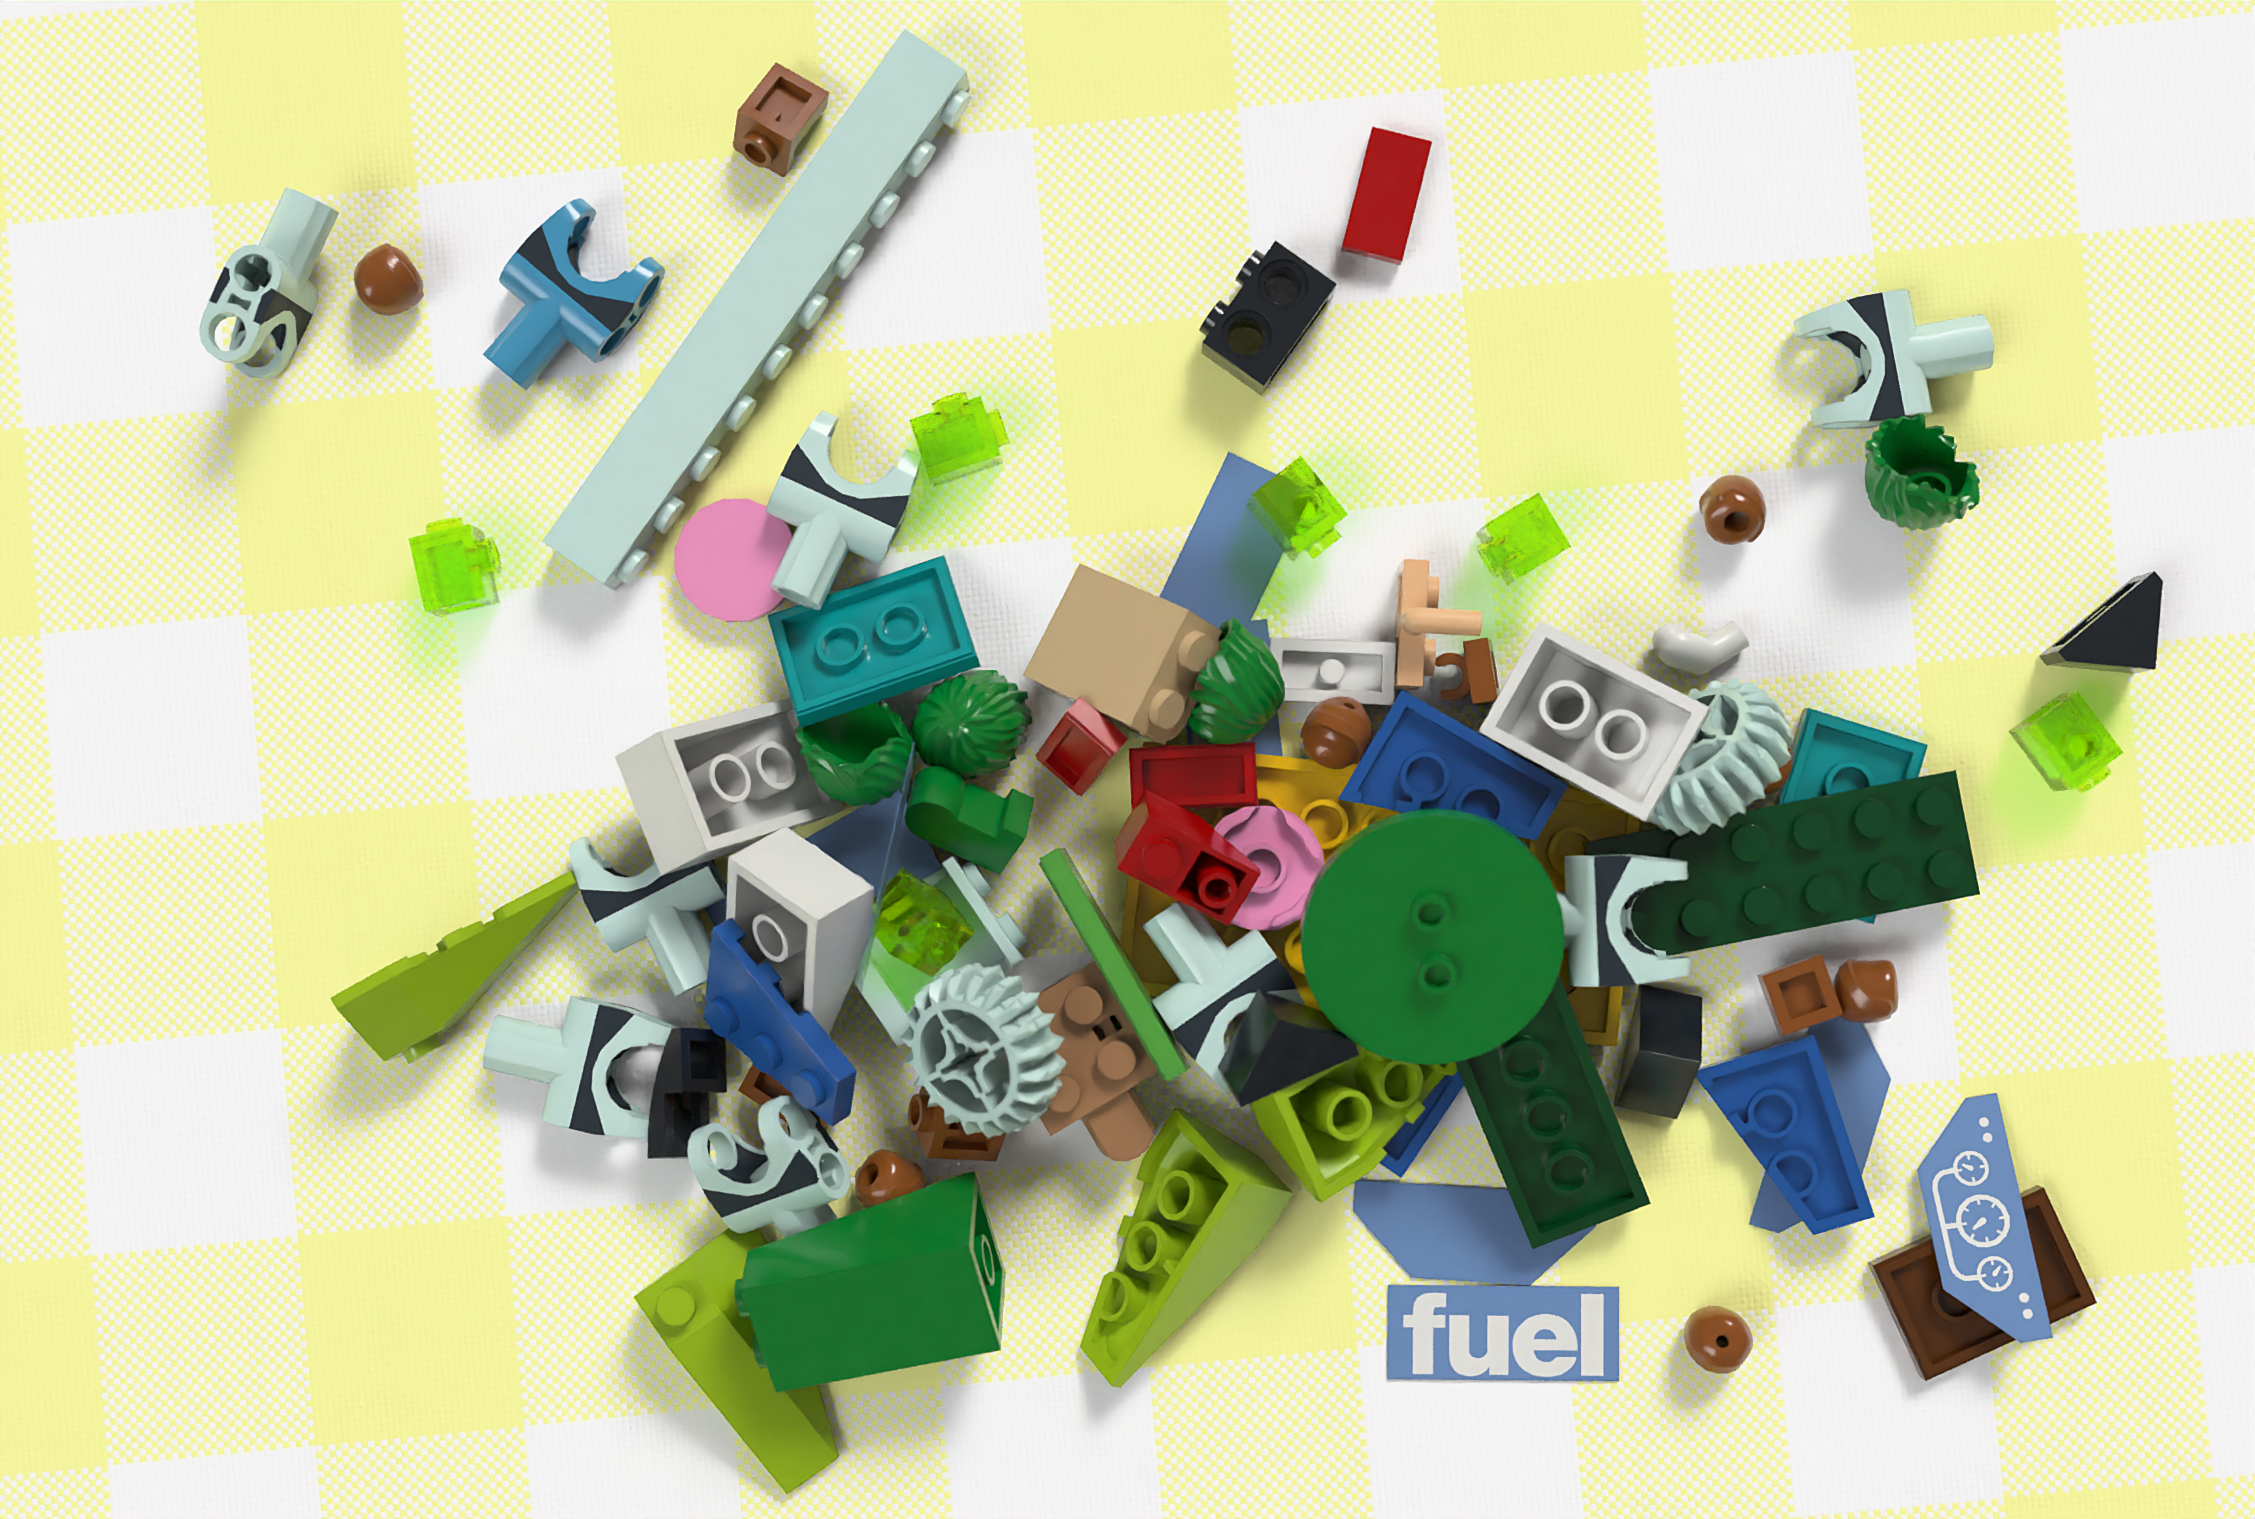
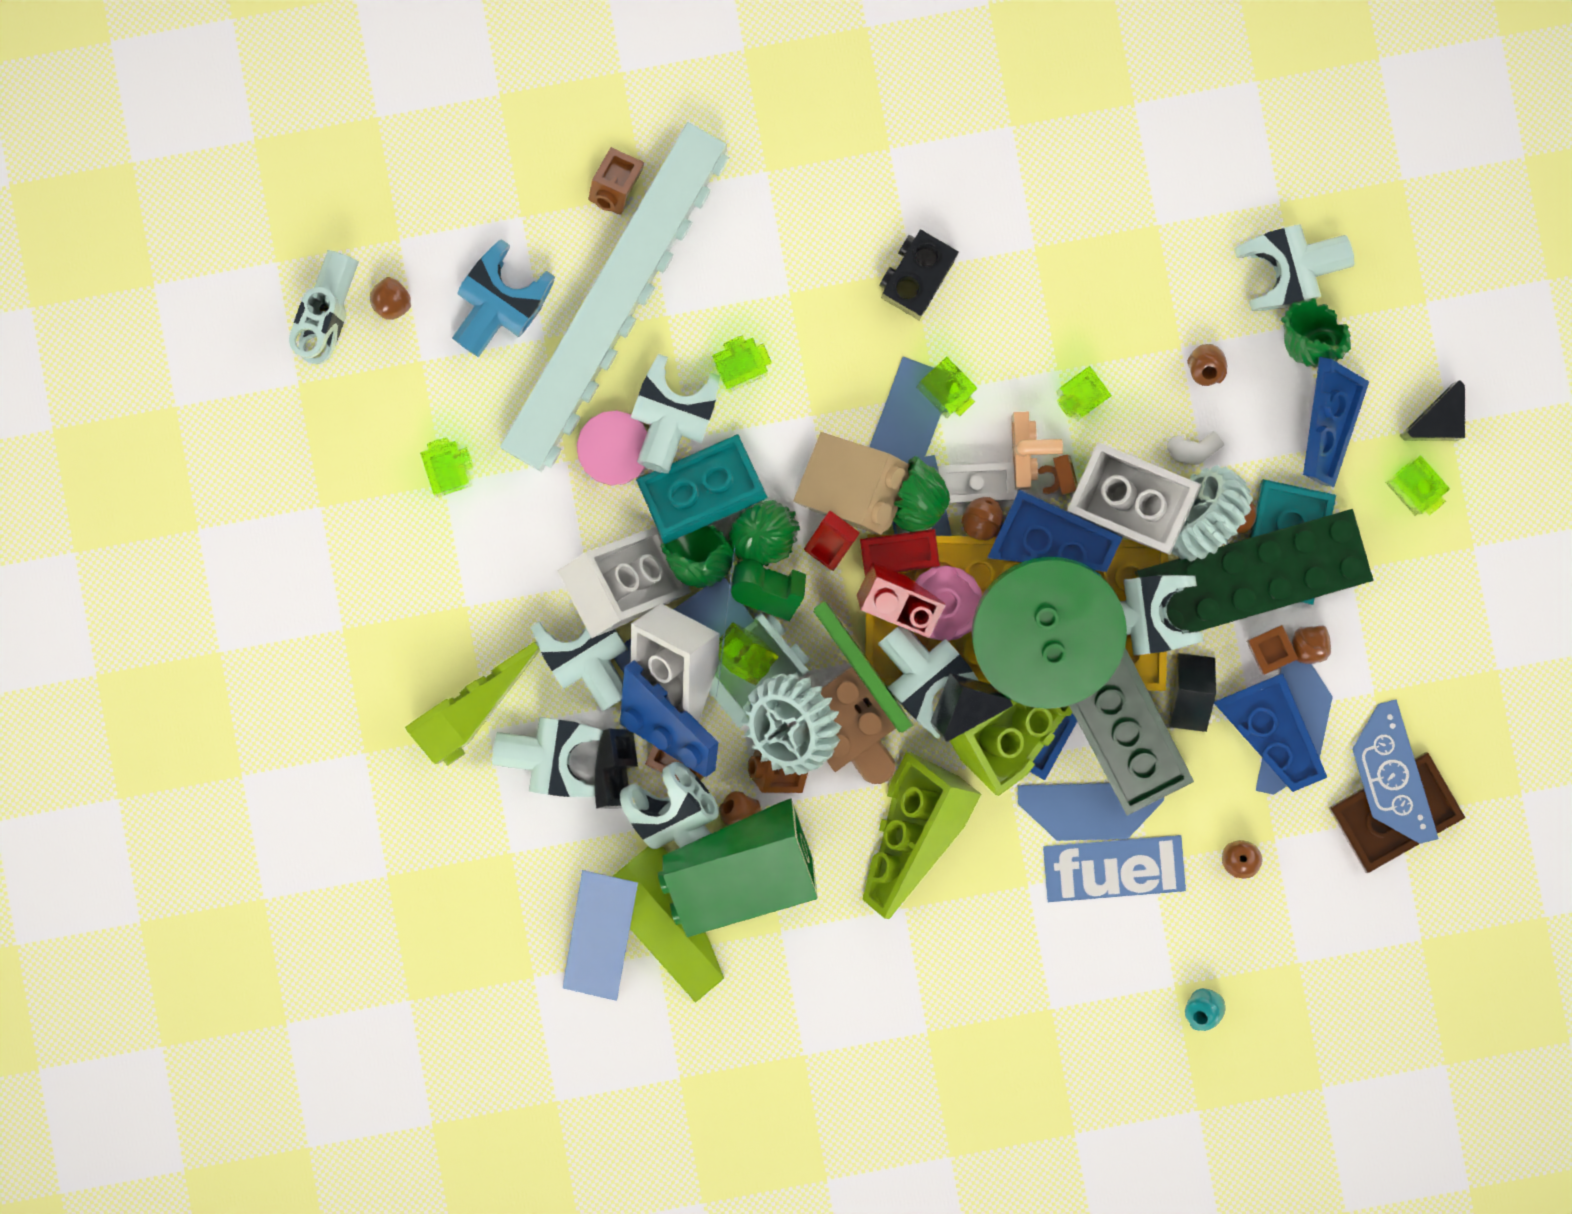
camera: 10 degrees left, 0 degrees up
(634, 1371) = (599, 935): none -> medium blue sticker
(1386, 195) = (983, 194): red tile -> none
(1935, 617) = (1333, 419): none -> blue wing

